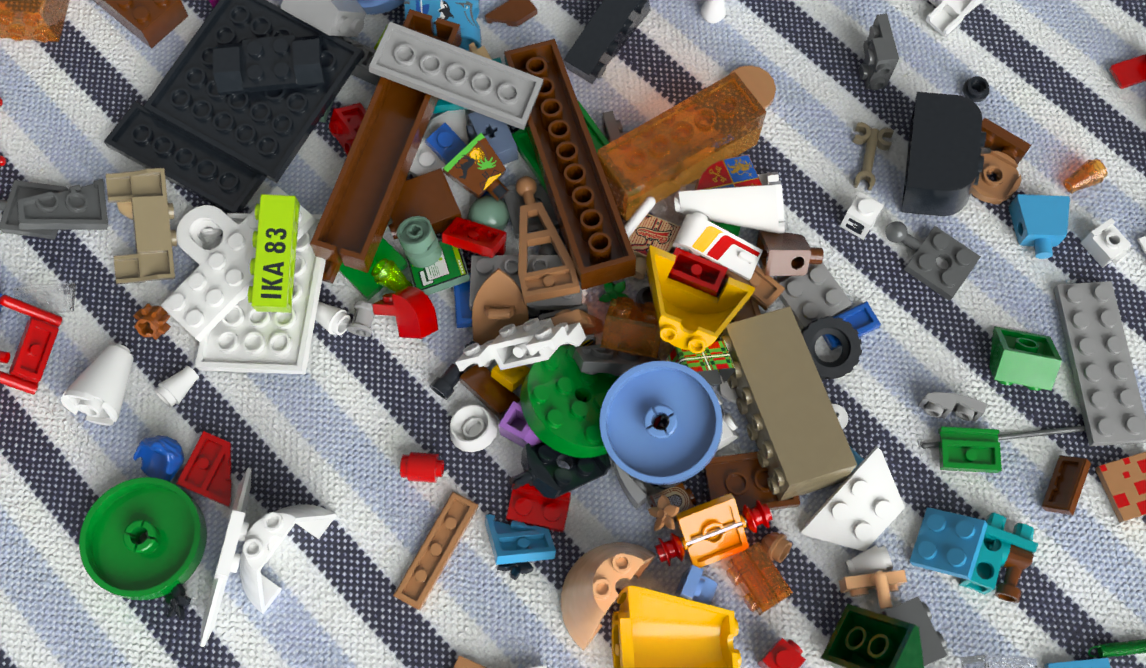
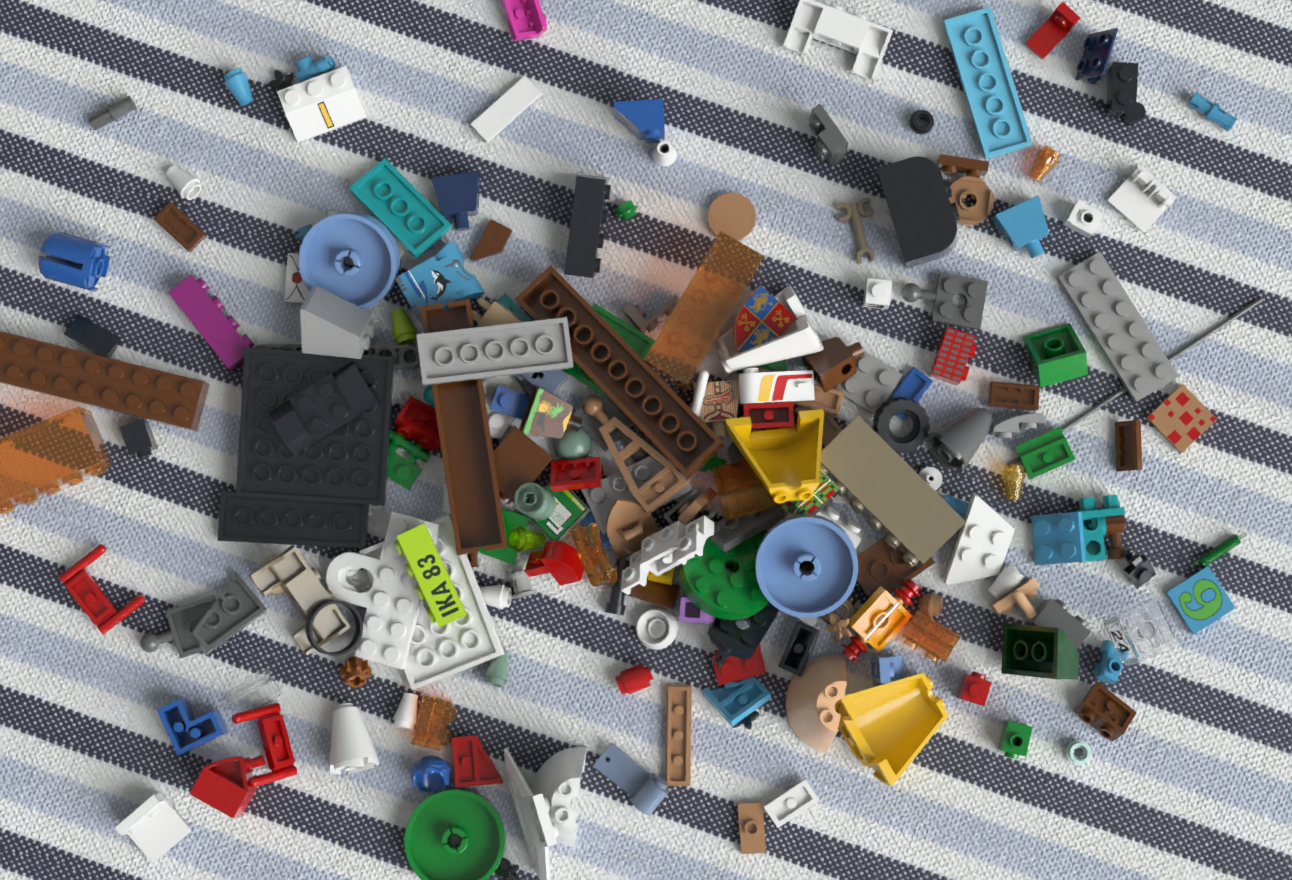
camera: 20 degrees left, 15 degrees up
(94, 25) = (139, 439): none -> black brick
(162, 237) = (358, 633): none -> black tyre
(196, 408) = (433, 722): none -> clear orange brick
(290, 389) = (497, 671): none -> sand green cone
(310, 160) = (402, 470): none -> green plate
(363, 570) = (634, 779): none -> sand blue door
(448, 322) = (593, 555): none -> clear orange plate
(610, 520) = (799, 648): none -> black slope
(652, 39) = (626, 210): none -> green plate
(883, 390) = (960, 439): none -> dark grey cone
(912, 309) = (953, 356): none -> red brick
(923, 460) = (1013, 480): none -> clear yellow cone
(960, 377) = (1013, 396): none -> reddish brown plate
(1027, 620) = (1139, 569): none -> black plate
(1057, 85) = (987, 83): none -> medium azure plate

